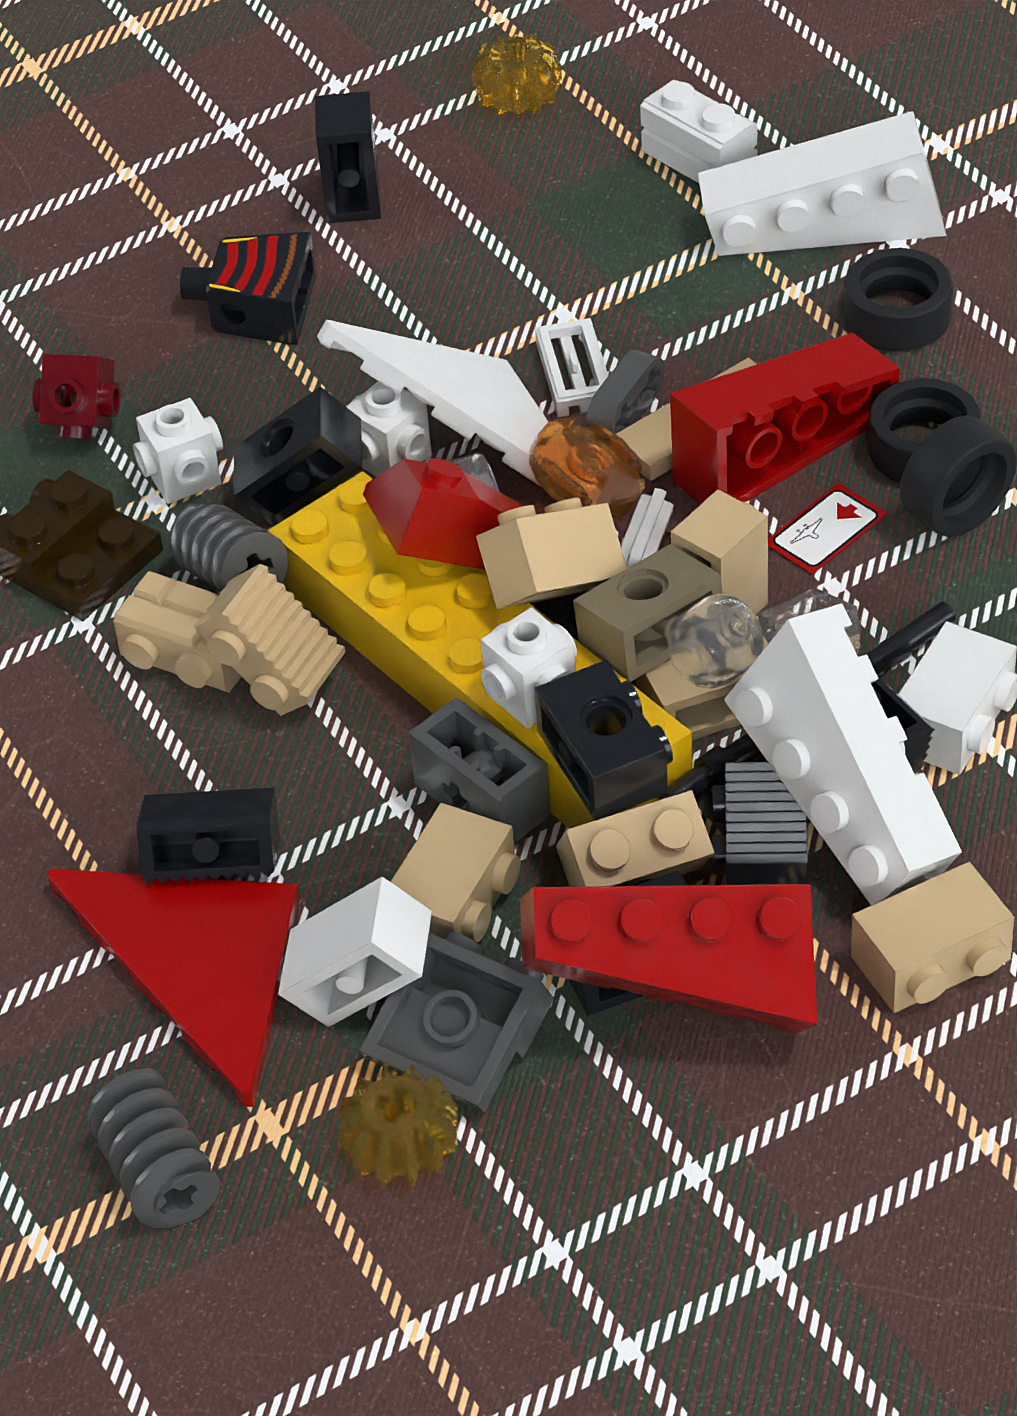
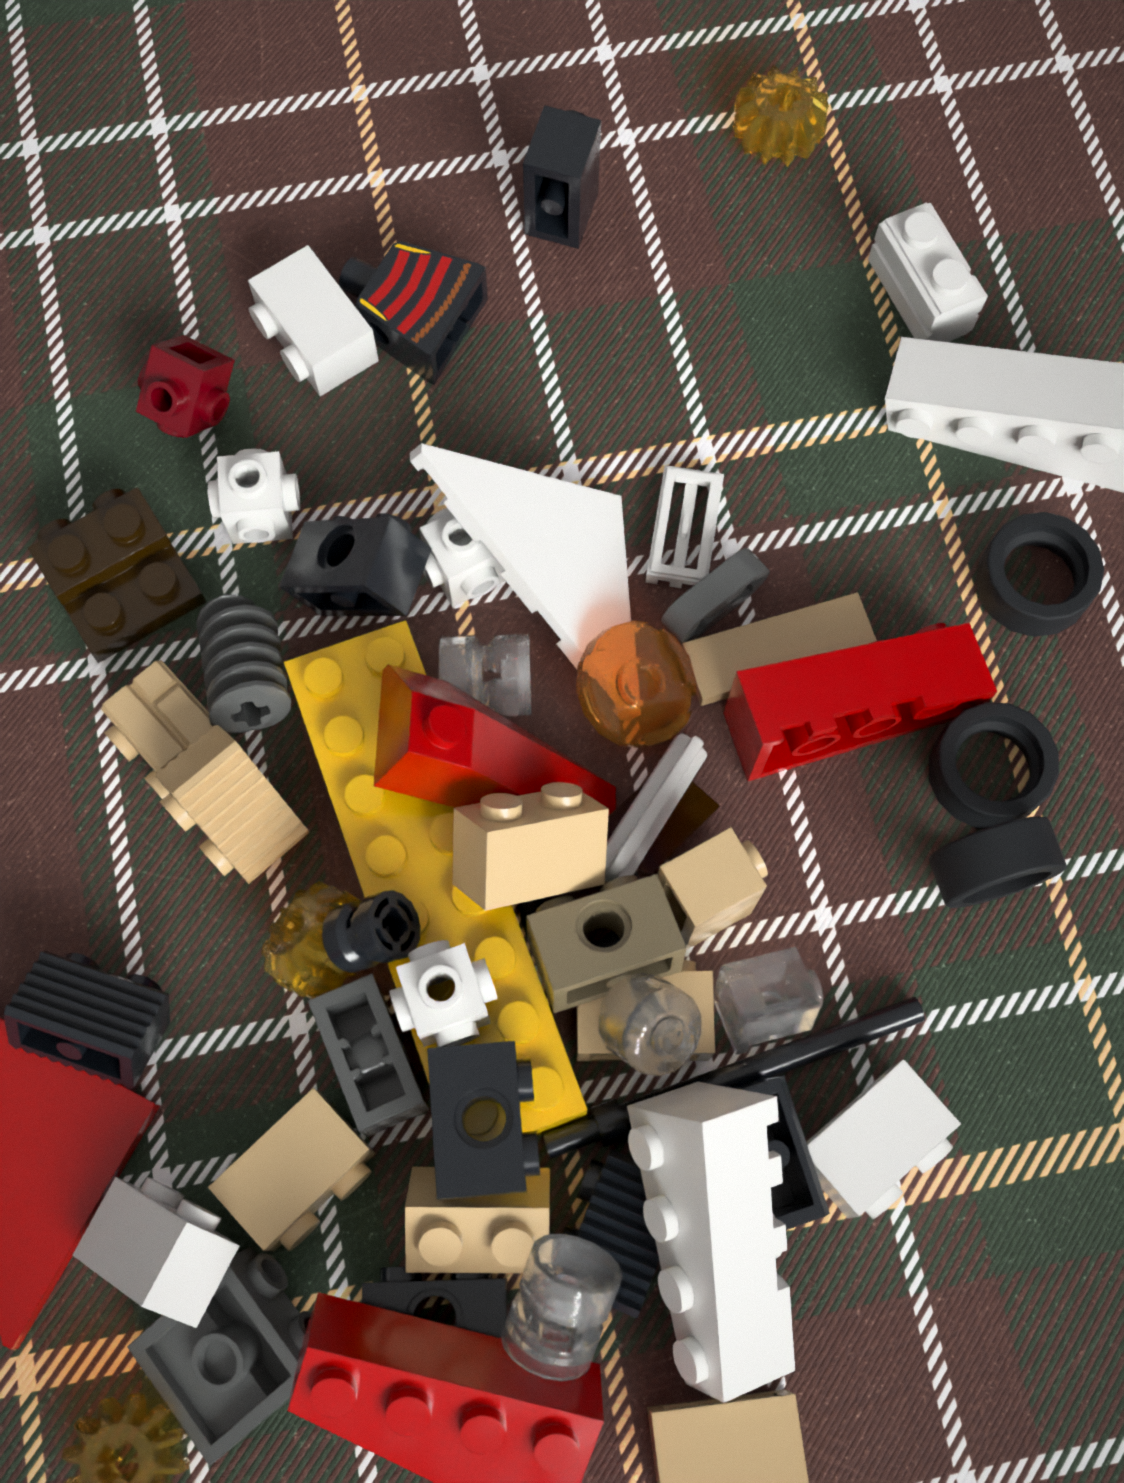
camera: 15 degrees right, 25 degrees up
(169, 323) = (312, 320): none -> white brick
(387, 708) = (296, 946): none -> clear yellow gear
(442, 654) = (371, 931): none -> black wheel
(735, 823) = (561, 1307): none -> clear wheel
(825, 528) = (846, 839): white sticker -> none

